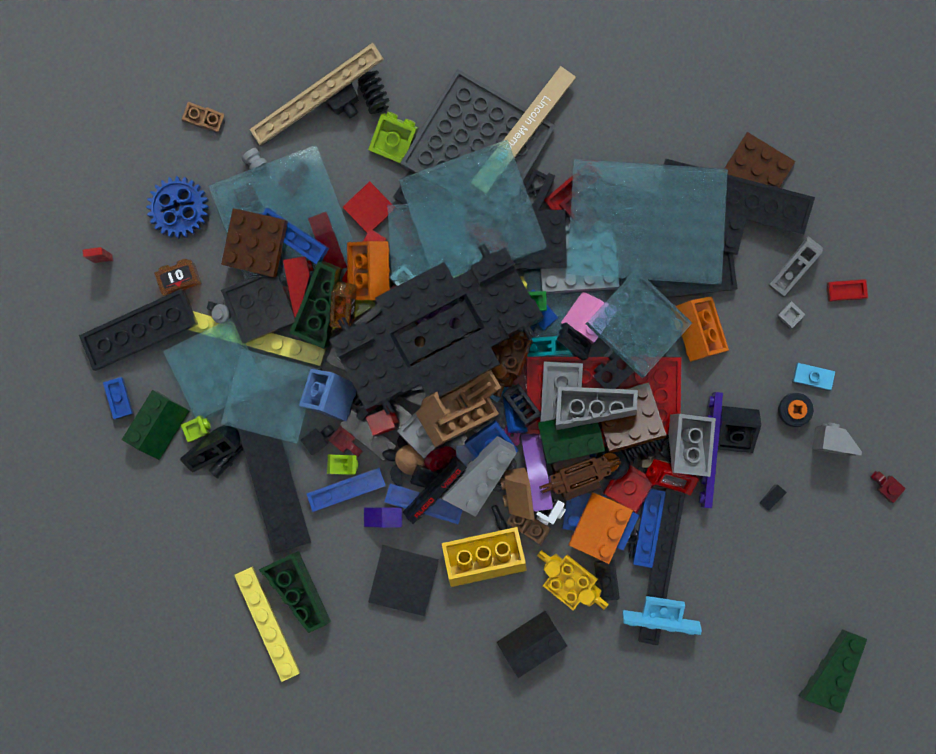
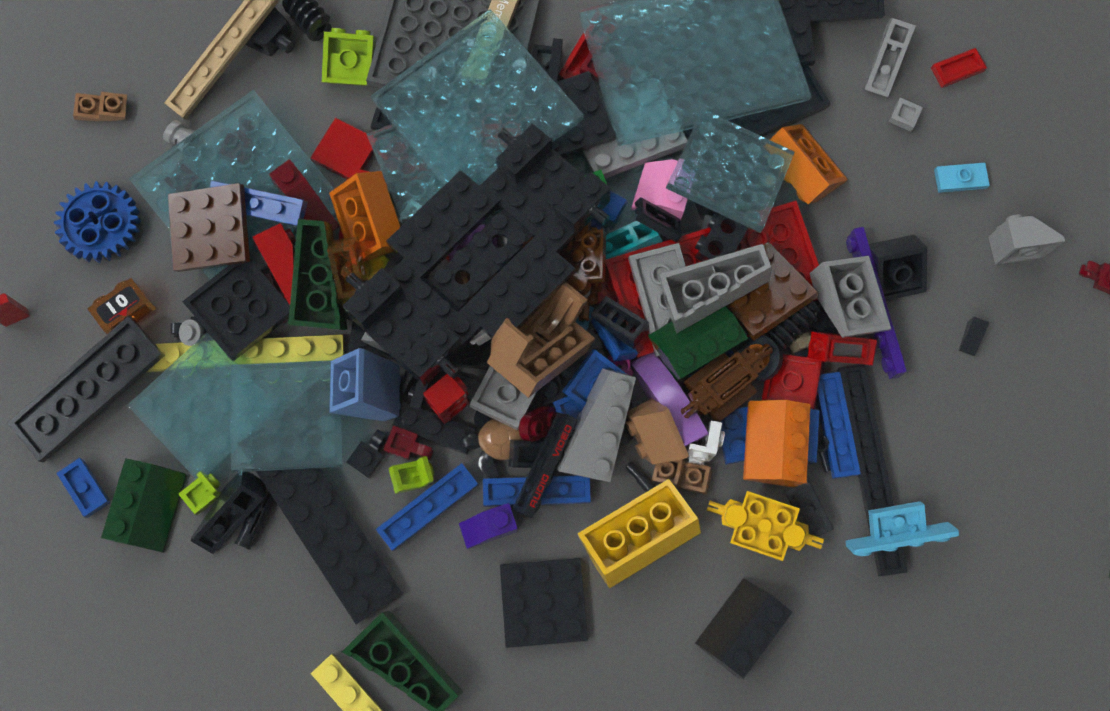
camera: 20 degrees left, 10 degrees down
(789, 408) = (948, 226): black wheel -> none

